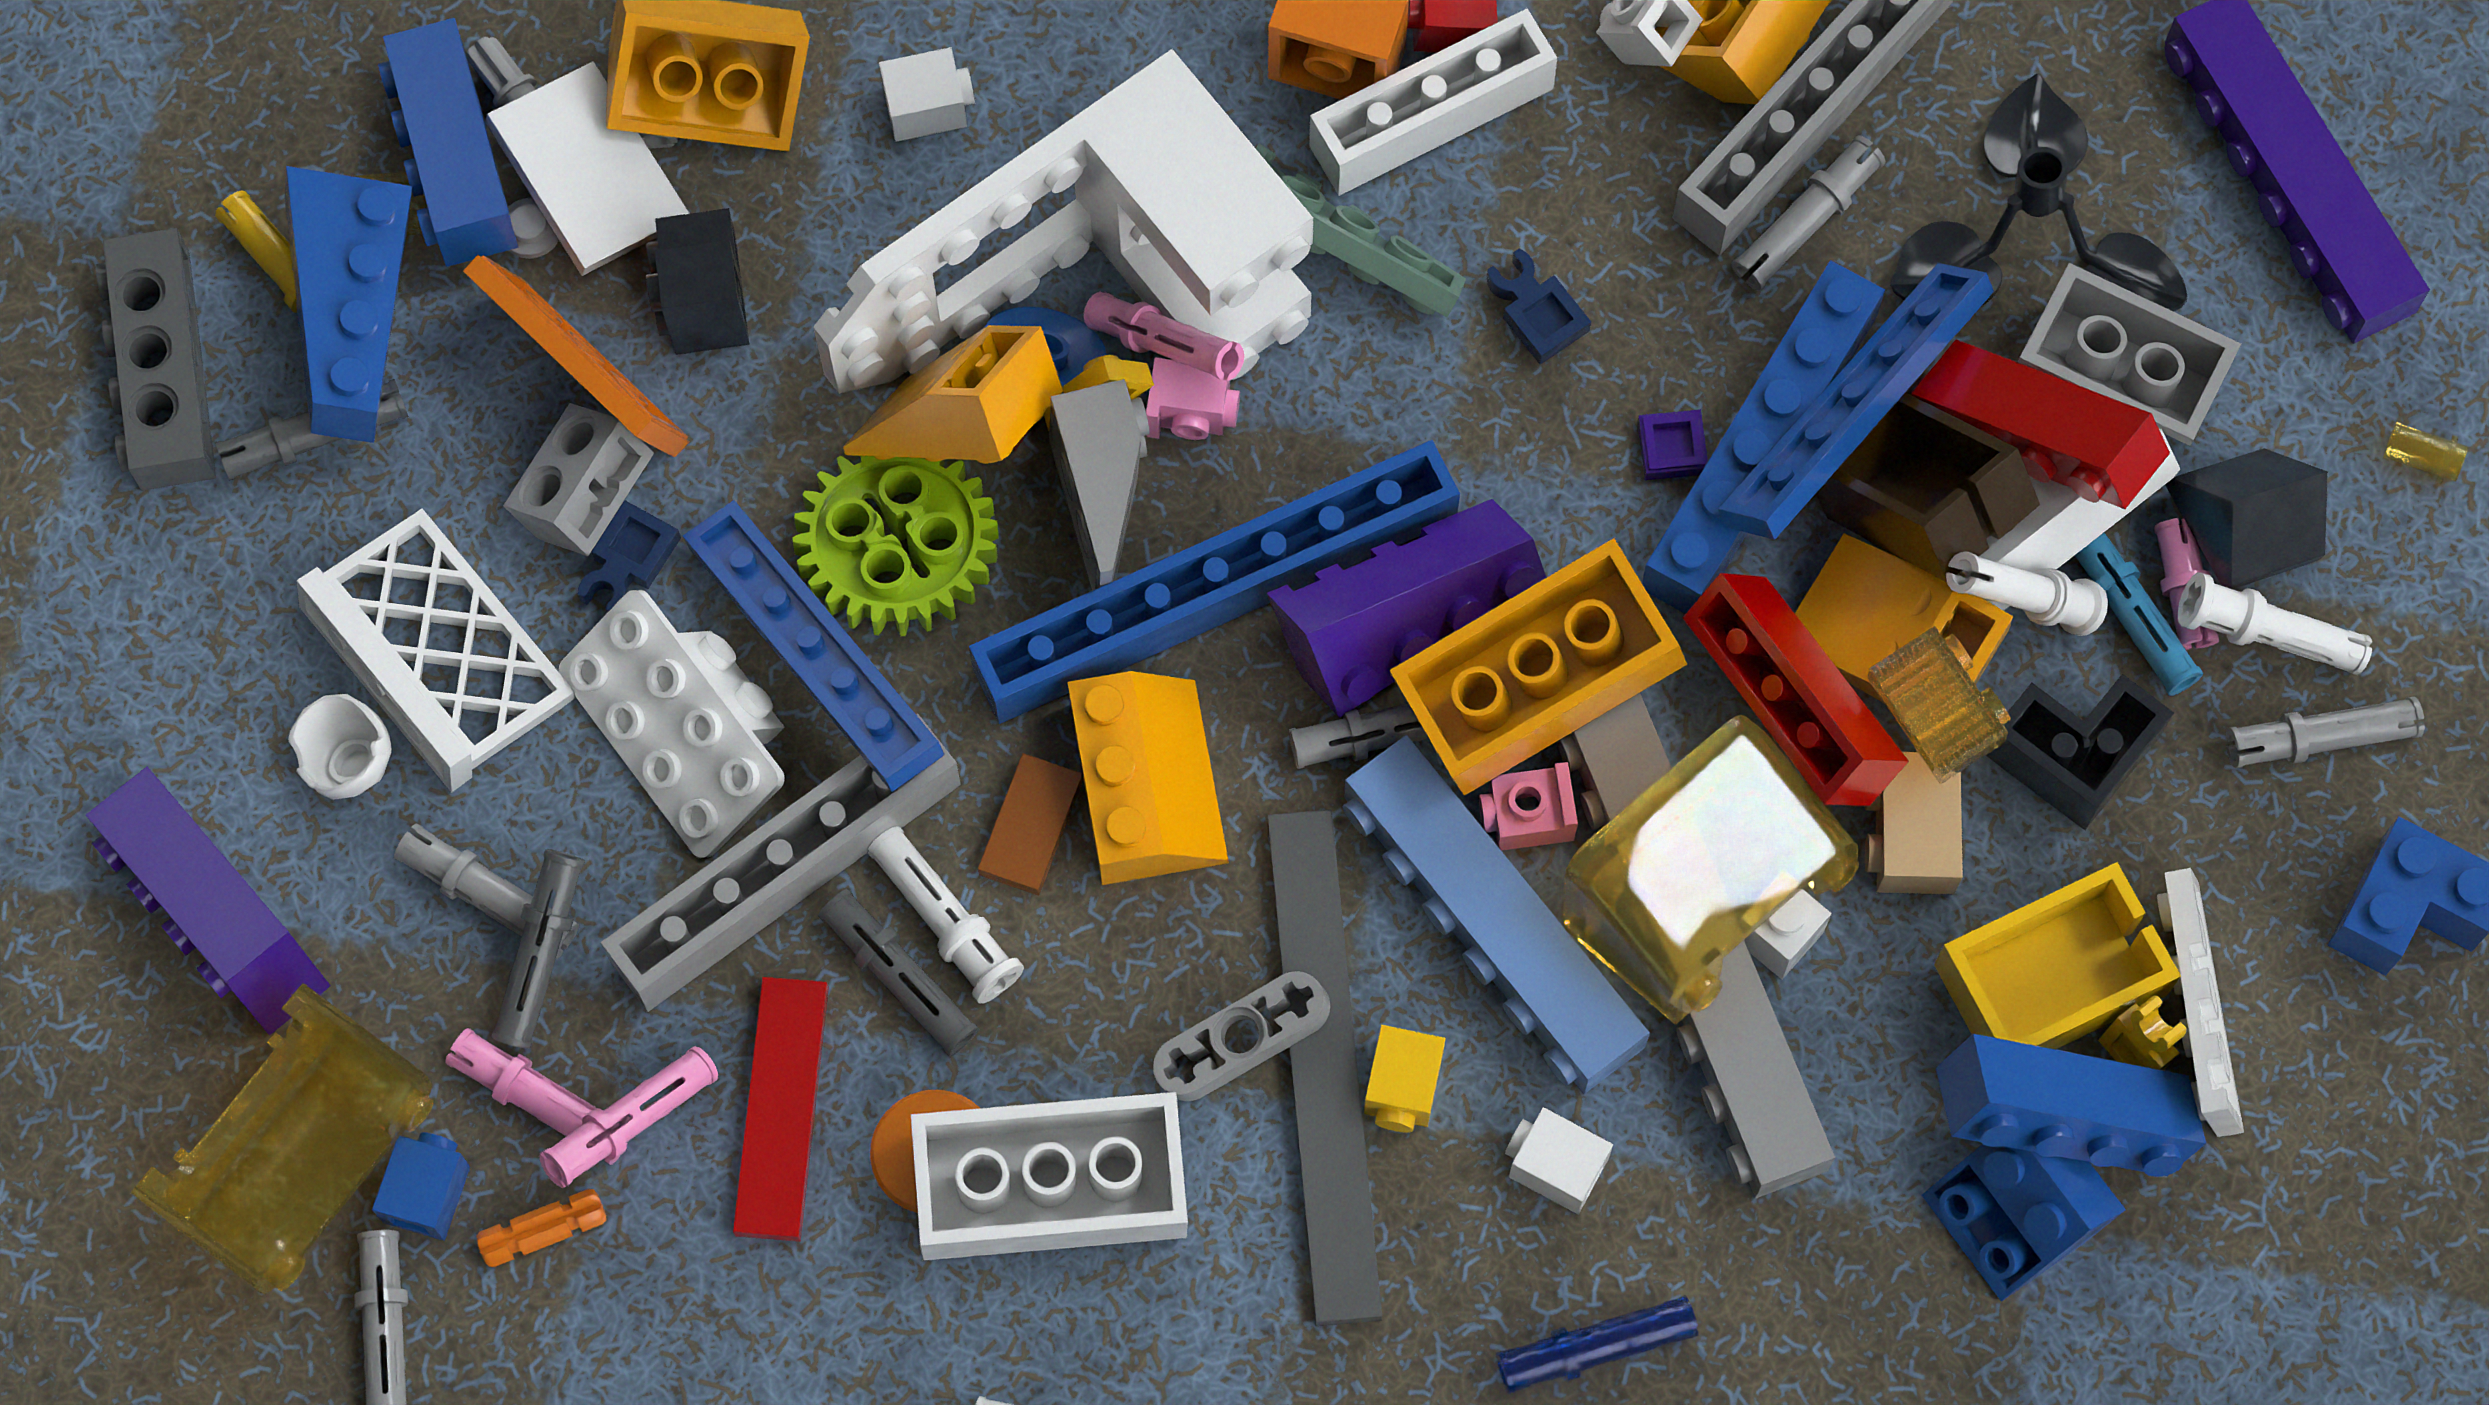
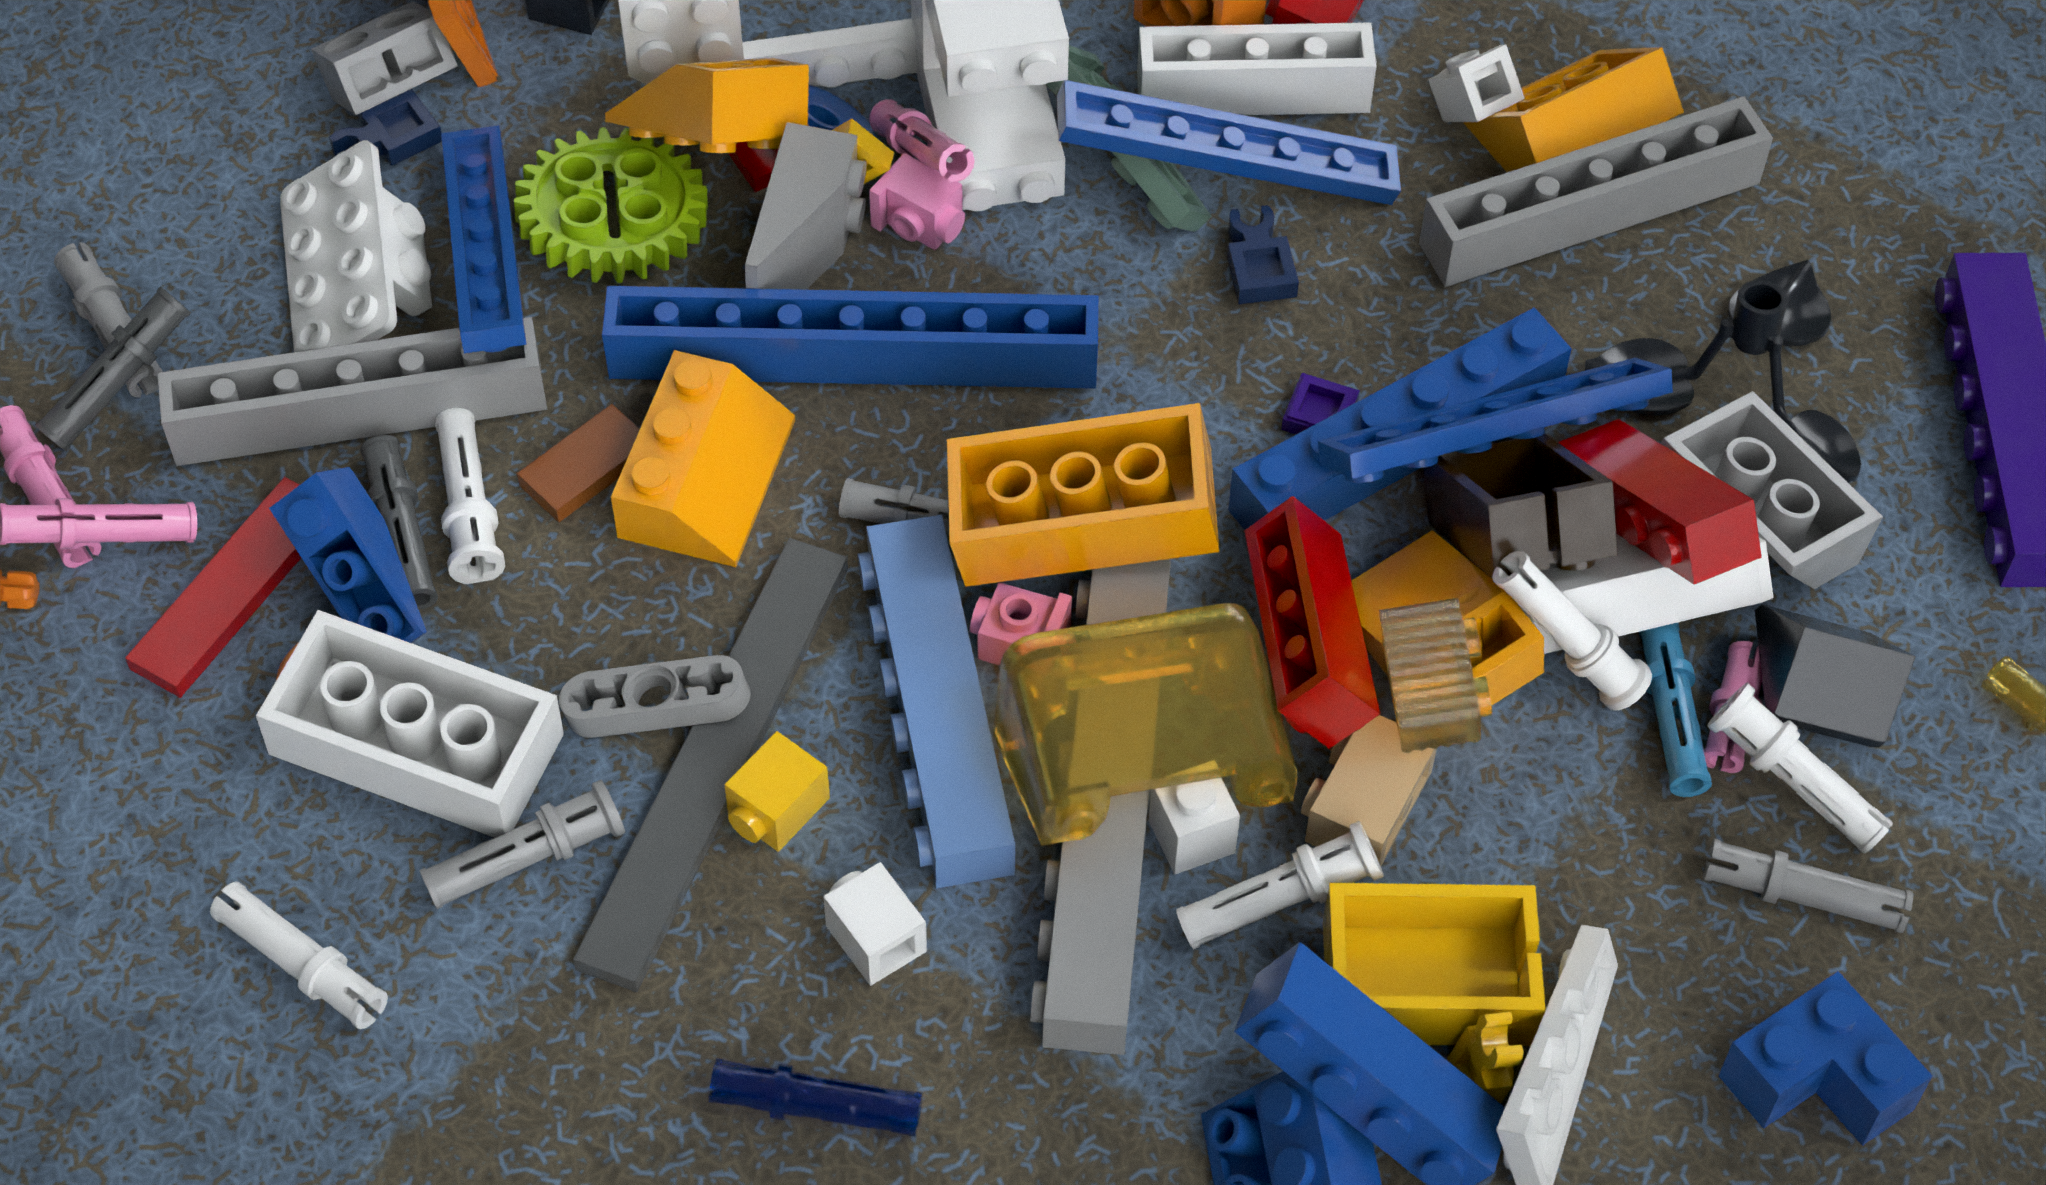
camera: 25 degrees right, 15 degrees down
(340, 746) = (68, 165): white hair -> none
(390, 679) = (147, 149): white fence -> none
(892, 1037) = (350, 552): none -> blue slope
(1224, 1204) = (554, 833): none -> light grey pin
(1402, 600) = (957, 396): dark purple wedge -> none
(1463, 207) = (1227, 142): none -> blue plate
(1826, 194) = (1563, 276): light grey pin -> none
(1924, 931) = (1305, 877): none -> white pin
(2079, 761) = (1554, 800): black brick -> none

